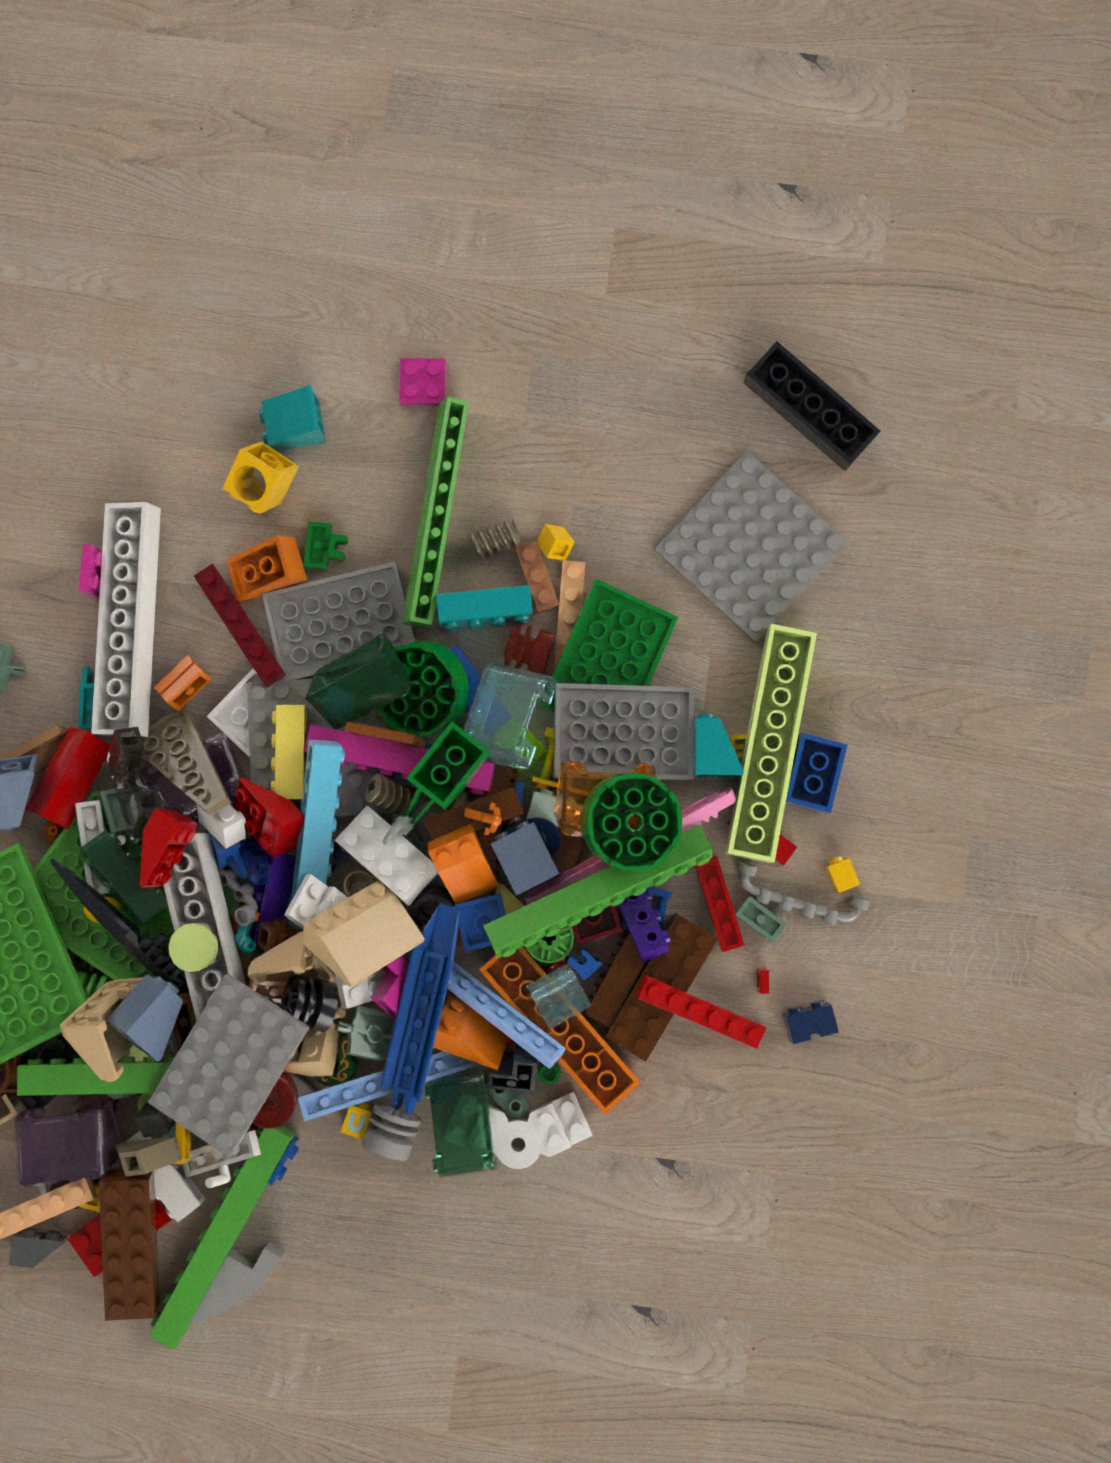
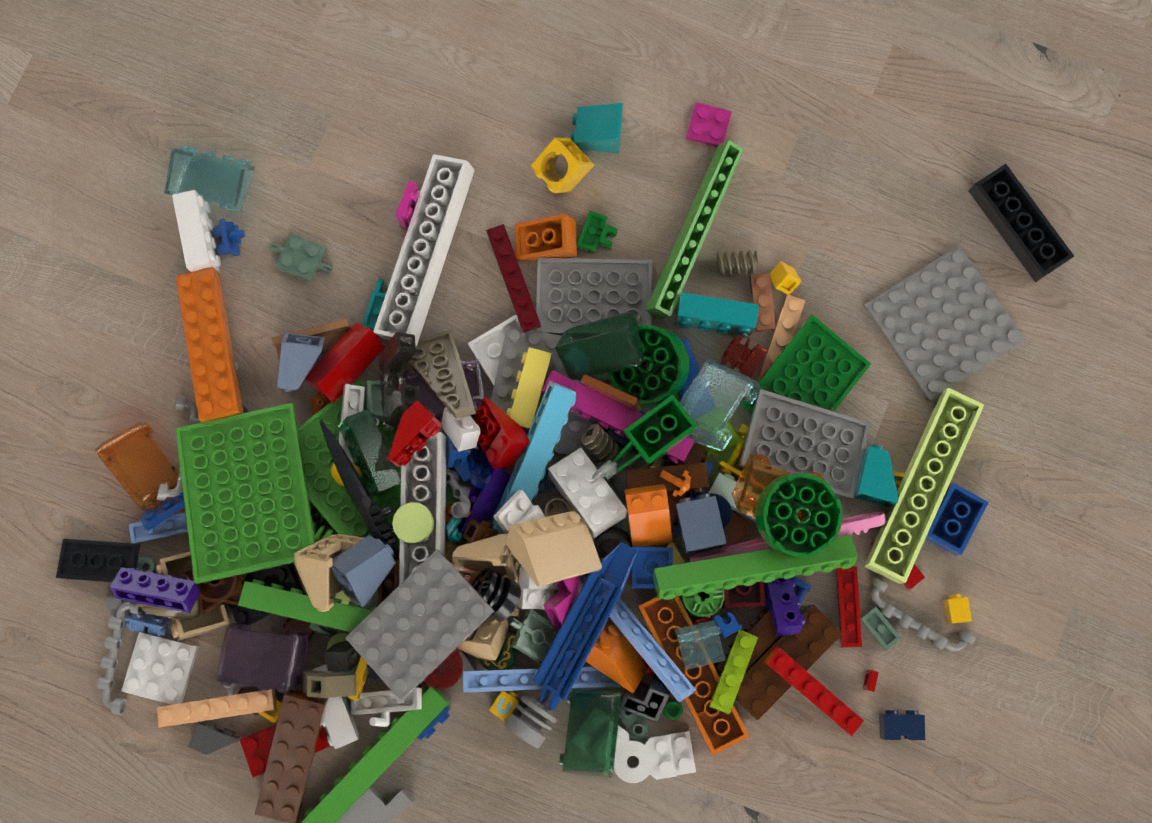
camera: 15 degrees right, 5 degrees down
(182, 683) = (455, 311): orange brick -> none
(604, 1015) = (733, 671): none -> lime plate

